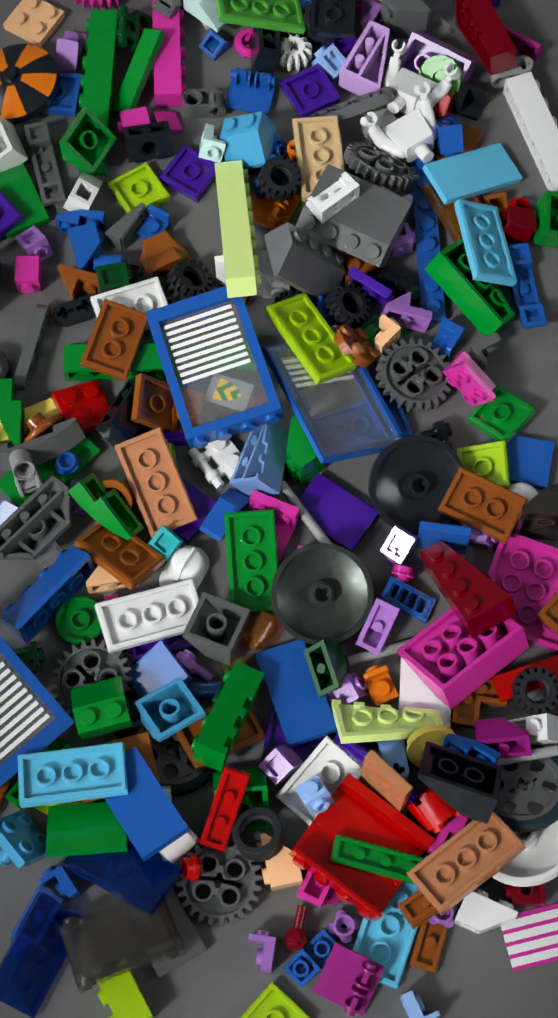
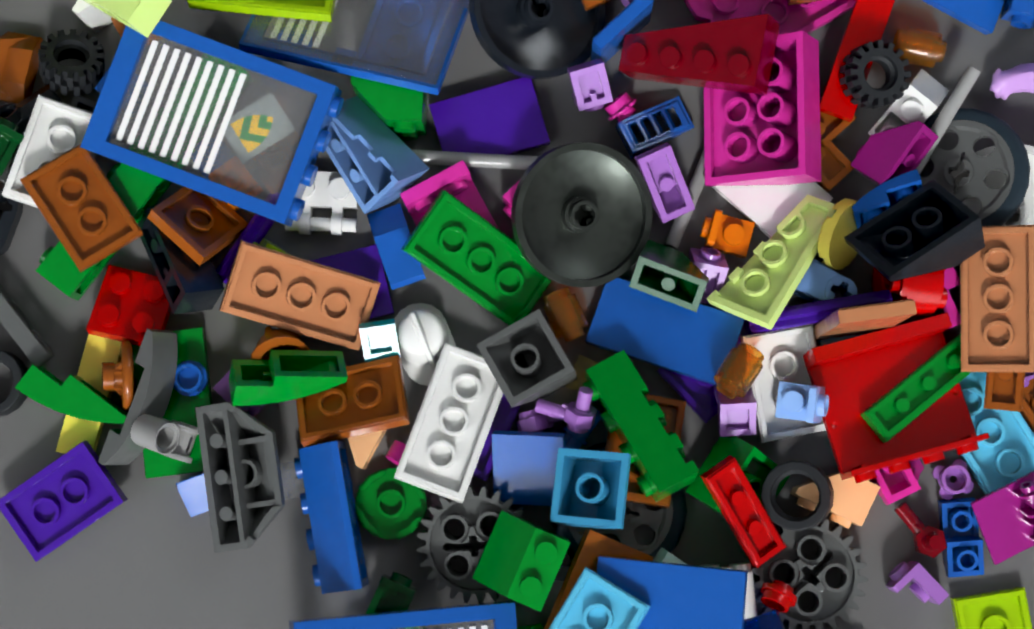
camera: 50 degrees left, 15 degrees up
(207, 677) = (578, 415): none -> medium lavender piece
(303, 744) = (739, 371): none -> clear orange brick

